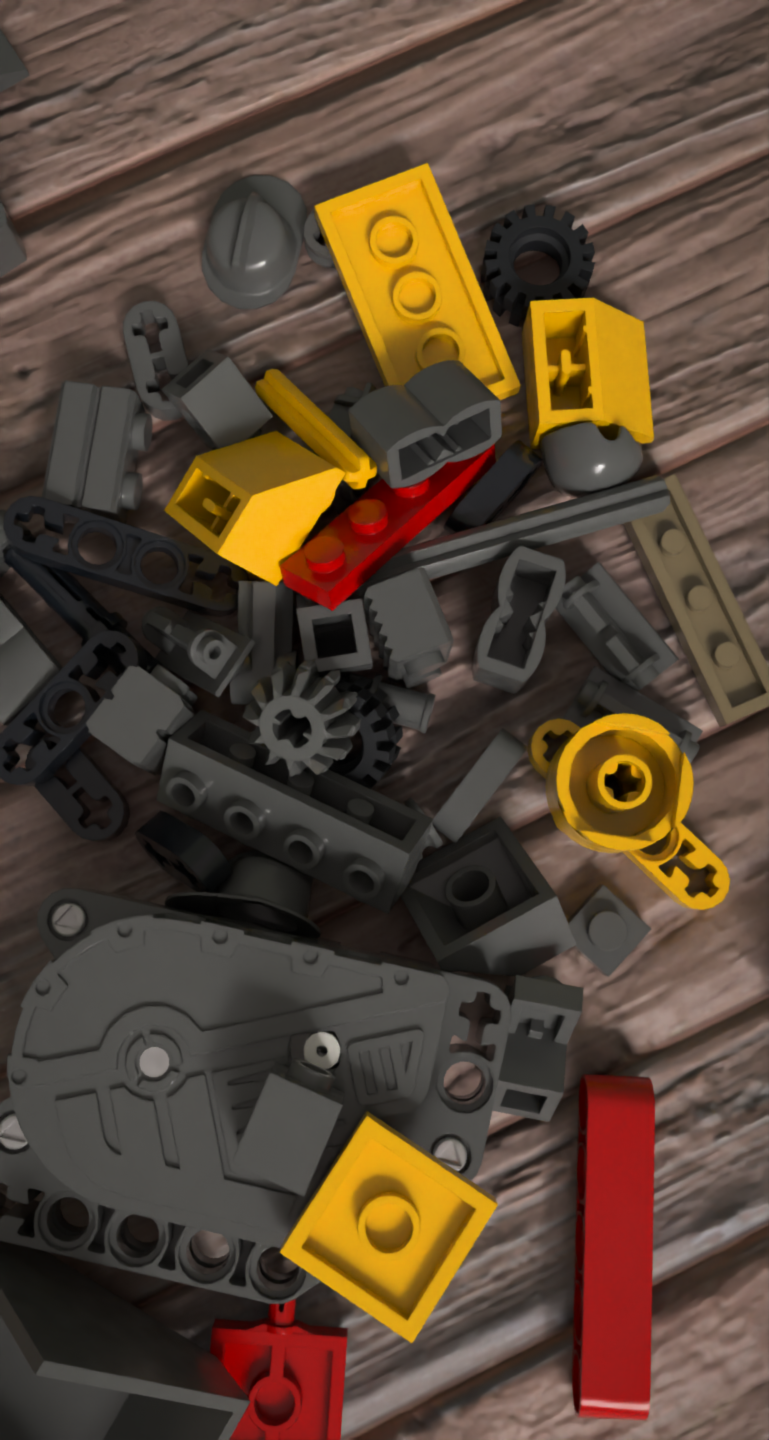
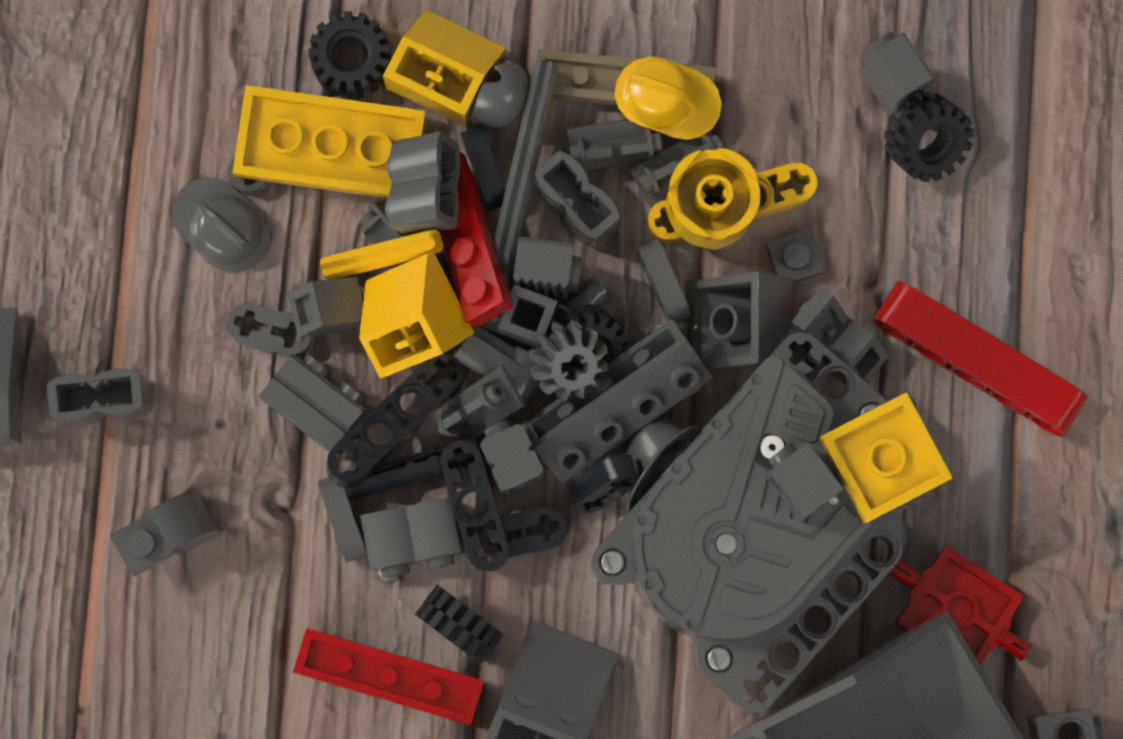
camera: 60 degrees left, 0 degrees up
(710, 662) = (668, 98): none -> yellow piece

